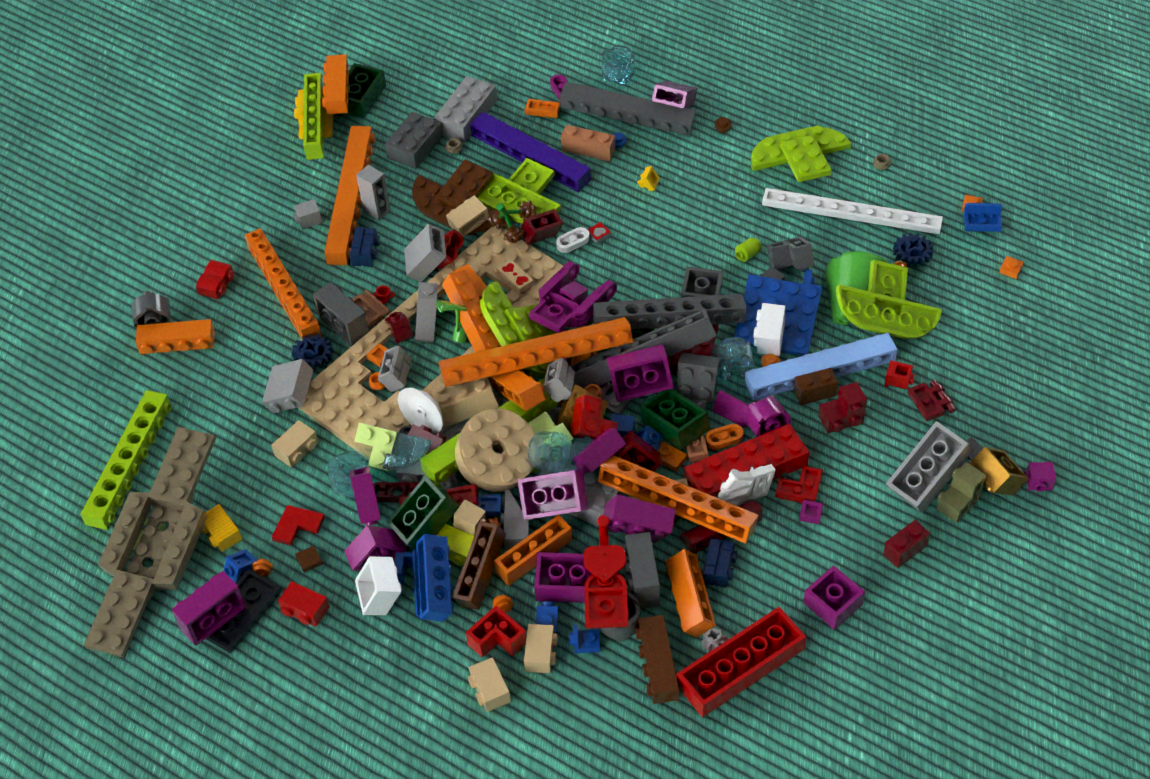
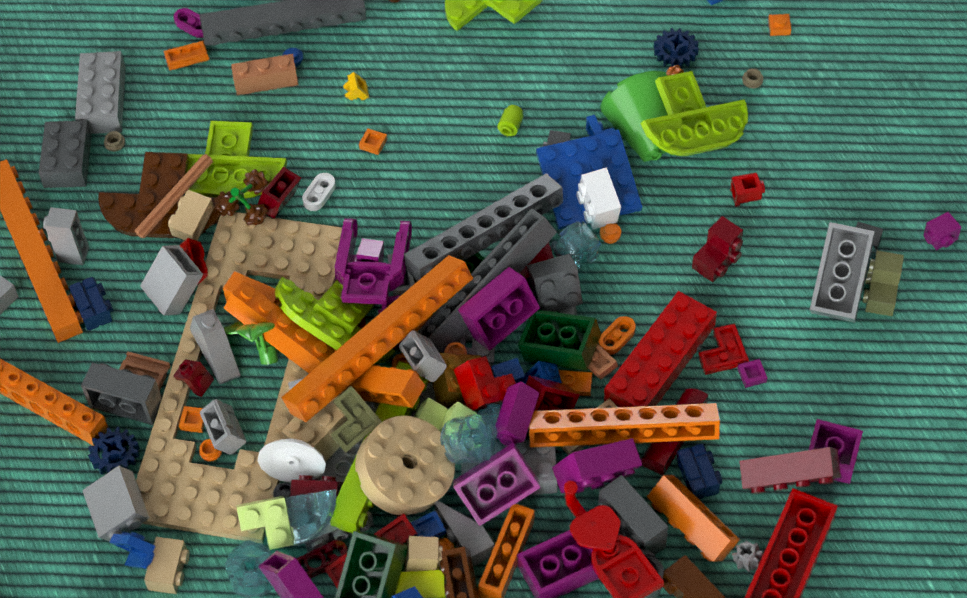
camera: 30 degrees left, 5 degrees up
(279, 415) = (140, 551): none -> blue bracket
(383, 294) = (146, 343): red plate -> none
(461, 197) = (173, 196): none -> nougat axle
(484, 398) = (360, 419): none -> olive plate
(515, 276) = (286, 261): tan tile -> none
(521, 146) = (200, 110): dark purple brick -> none
(599, 233) = (341, 171): tile -> none
(635, 221) = (373, 141): none -> orange plate
(702, 282) = (492, 182): dark grey brick -> none
(731, 408) = (606, 301): magenta slope -> none
(749, 485) = (679, 376): white plate -> none
(766, 416) = (651, 295): magenta brick -> none
(786, 591) = (790, 469): none -> brick
(790, 252) = (562, 104): dark grey brick -> none
(815, 386) = (674, 238): reddish brown piece -> none
(841, 359) = (663, 215): light blue brick -> none
(852, 211) = (587, 32): white plate -> none
(906, 543) = (864, 361): dark red piece -> none
(926, 401) = (789, 204): dark red plate -> none
(961, 297) = (752, 78): none -> dark tan plate
(1001, 471) = (907, 242): pearl gold brick -> none

